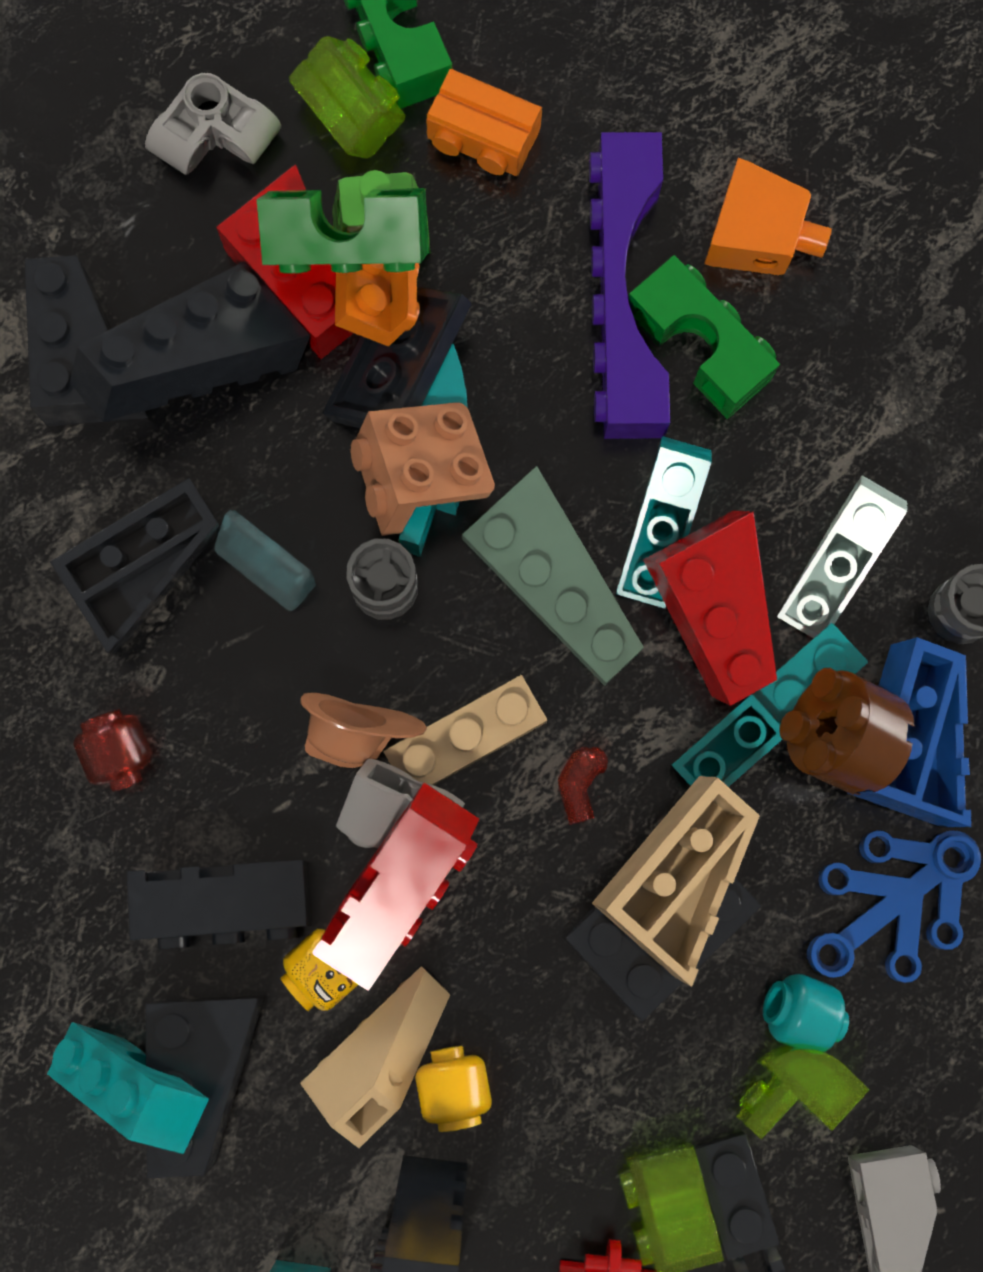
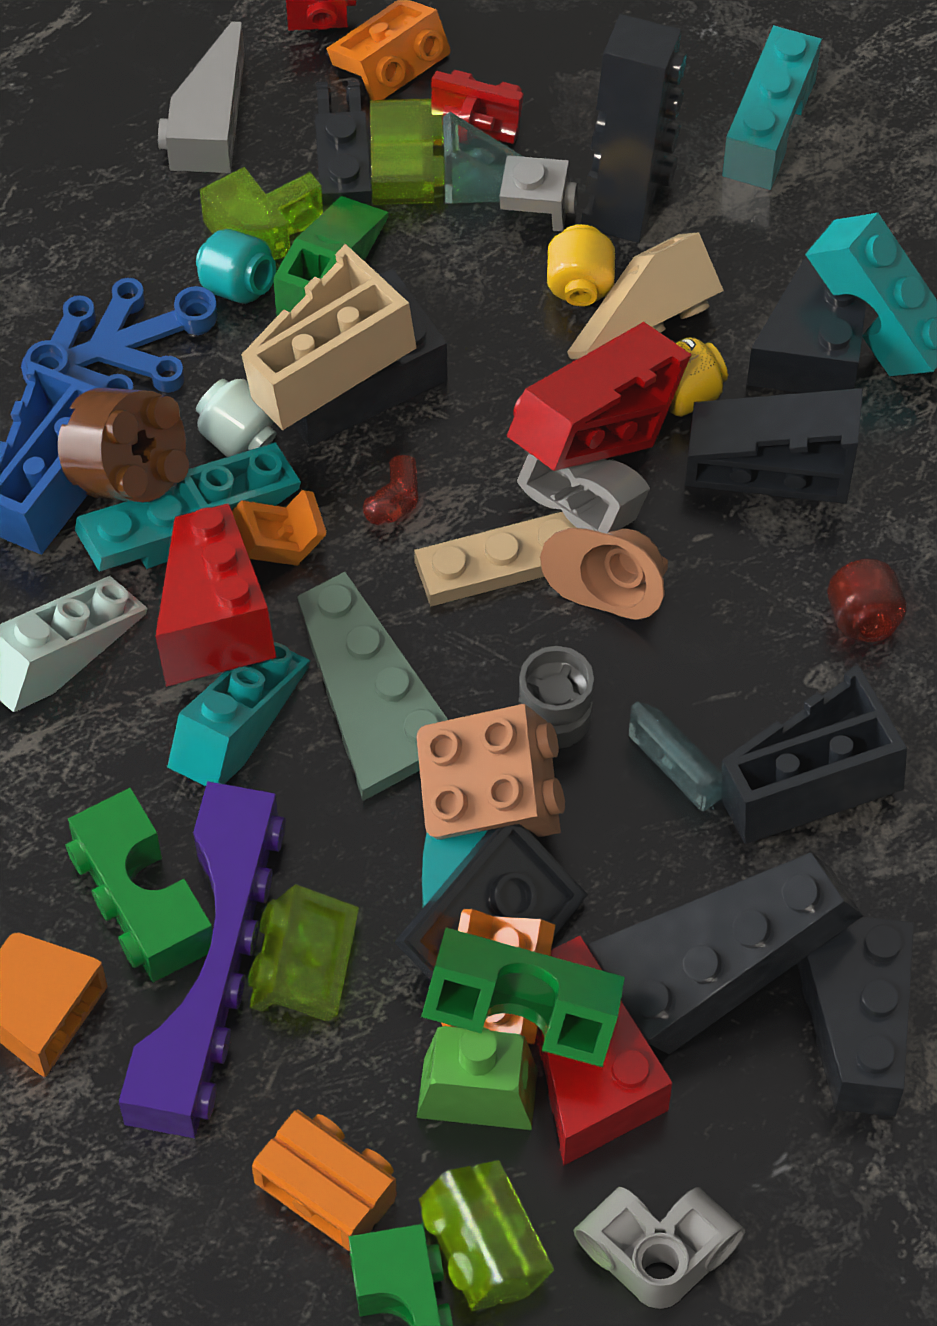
camera: 165 degrees left, 20 degrees down
(518, 1183) = (539, 187): none -> light grey bracket
(549, 306) = (303, 953): none -> clear neon green bracket
(585, 1207) = (471, 162): none -> clear light blue slope
(679, 709) = (280, 532): none -> orange bracket
(713, 1048) = (315, 248): none -> green slope
(771, 831) = (233, 419): none -> light aqua head

